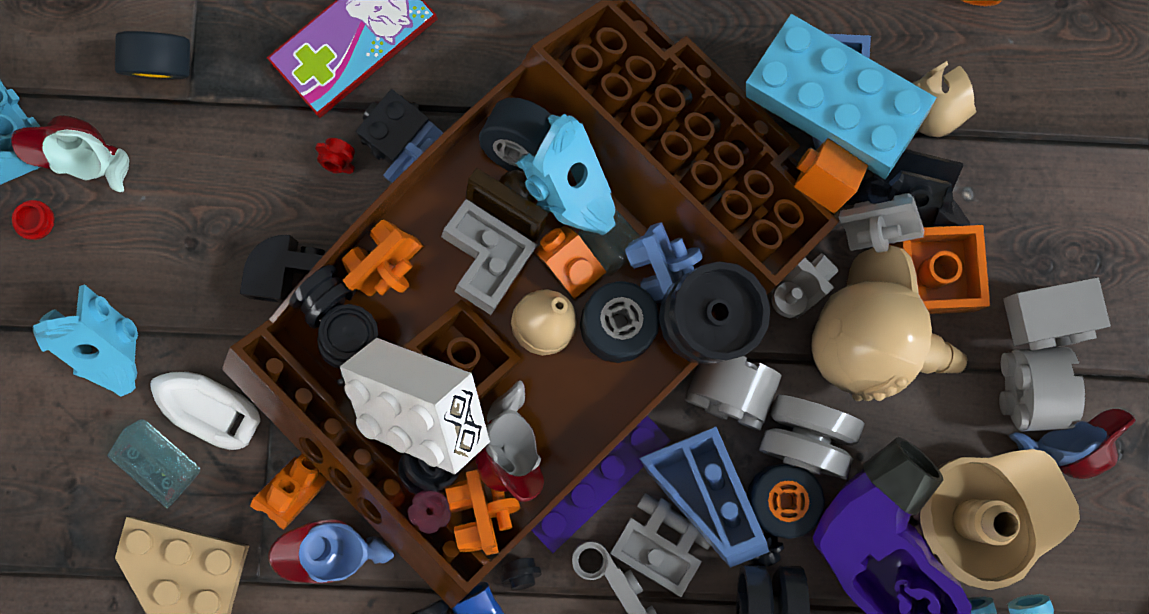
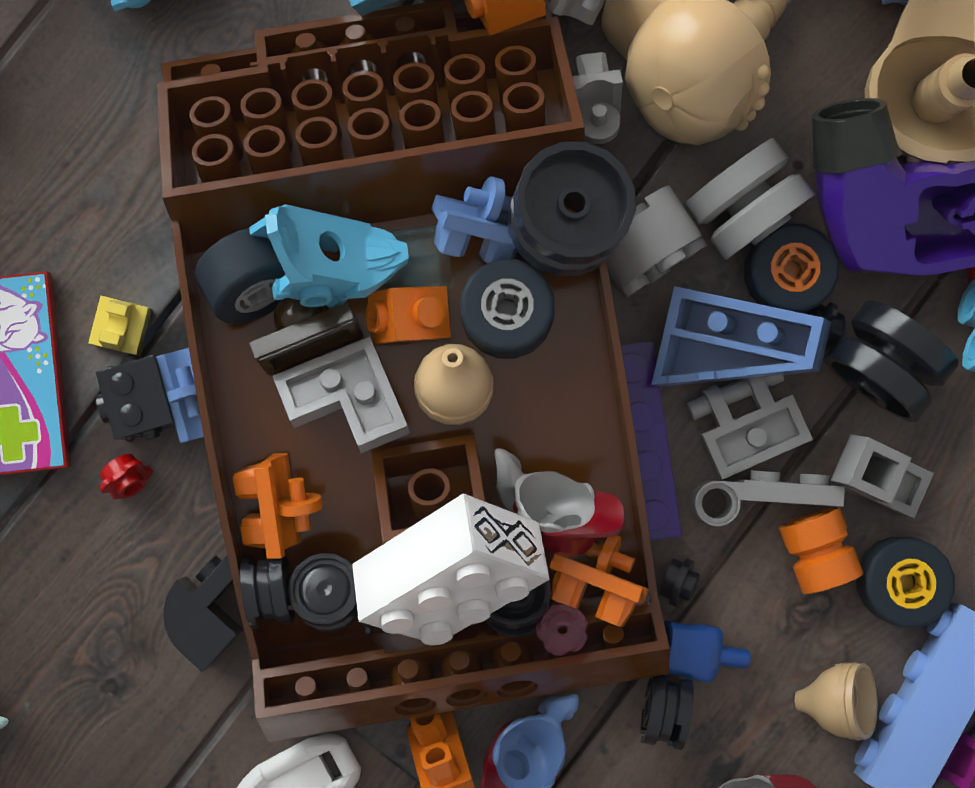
camera: 55 degrees left, 5 degrees up
(434, 85) = (120, 325): none -> light yellow tile

